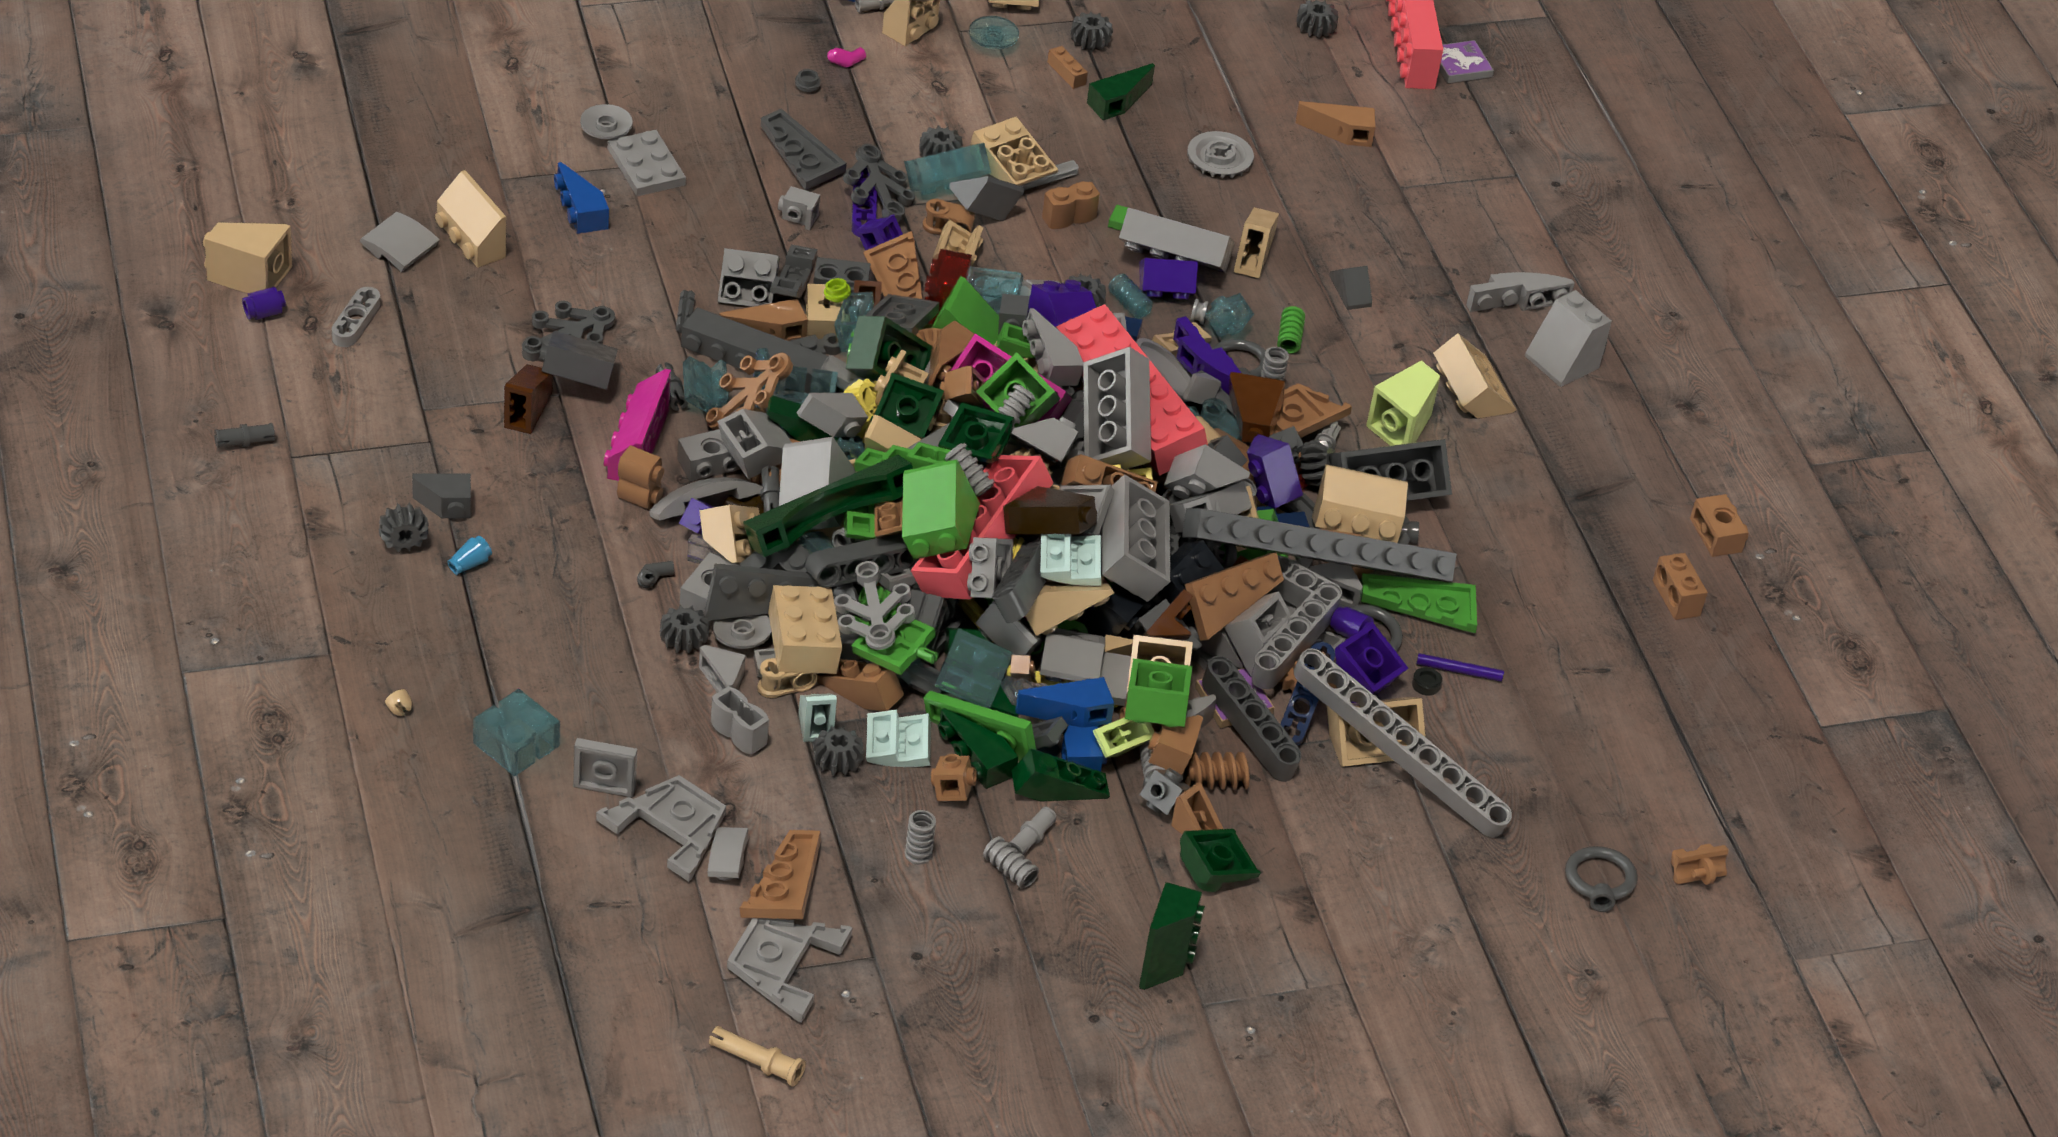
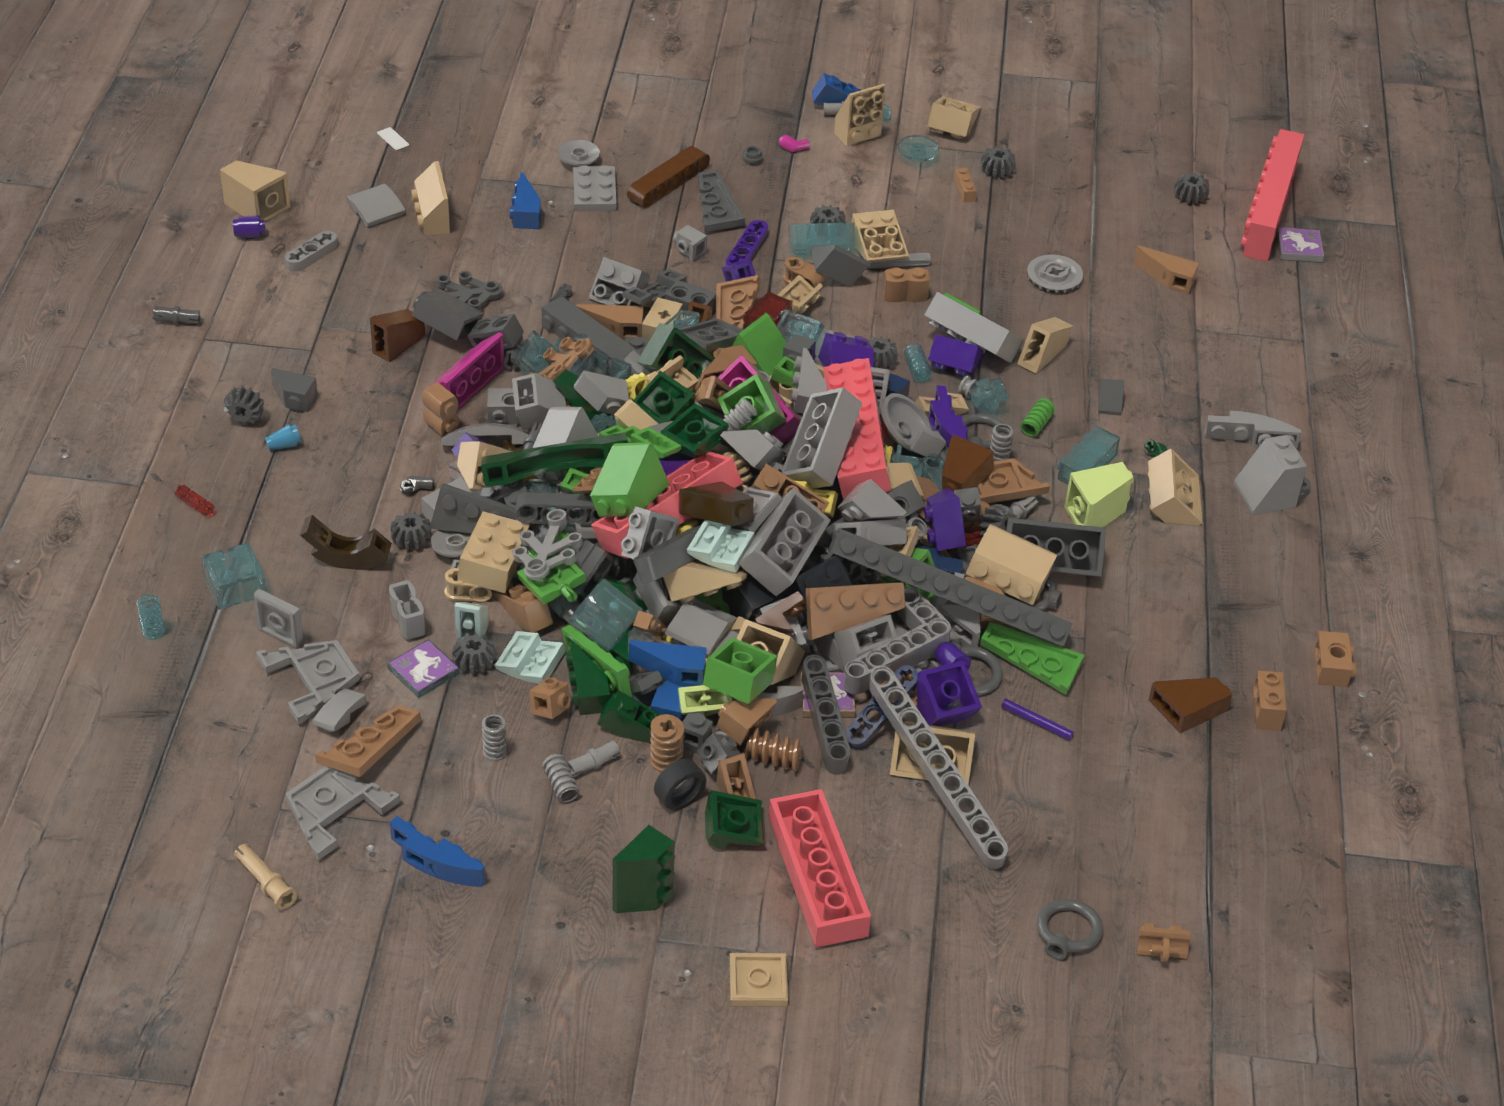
camera: 25 degrees right, 0 degrees up
(364, 150) = (393, 138): none -> white sticker
(399, 702) = (164, 532): tan hinge -> none
(409, 655) = (194, 500): none -> clear red axle
(455, 803) = (150, 617): none -> clear light blue piece
(628, 671) = (343, 551): none -> dark brown arch
(643, 364) = (487, 327): none -> dark grey brick
(722, 667) = (424, 570): light grey slope -> none
(727, 129) = (668, 176): none -> reddish brown beam
(788, 782) = (423, 668): none -> tile
(837, 290) = (673, 305): lime plate -> none
(870, 158) = (763, 218): dark grey plant -> none
(934, 986) = (438, 860): none -> blue slope
(977, 478) = (668, 455): light grey piece -> none
(1107, 794) = (666, 741): none -> medium nougat piece
(1119, 92) = (997, 210): dark green slope -> none
(1127, 767) = (697, 726): none -> dark grey brick
(1145, 834) = (672, 776): none -> black tyre
(1327, 1015) = (758, 979): none -> tan tile
(1332, 882) = (819, 868): none -> coral brick
(1366, 363) = (1093, 451): none -> clear light blue brick
(1427, 681) = (1002, 723): pearl dark grey tile -> none
(1431, 337) = (1154, 448): none -> dark green arm
(1602, 607) = (1190, 701): none -> reddish brown slope

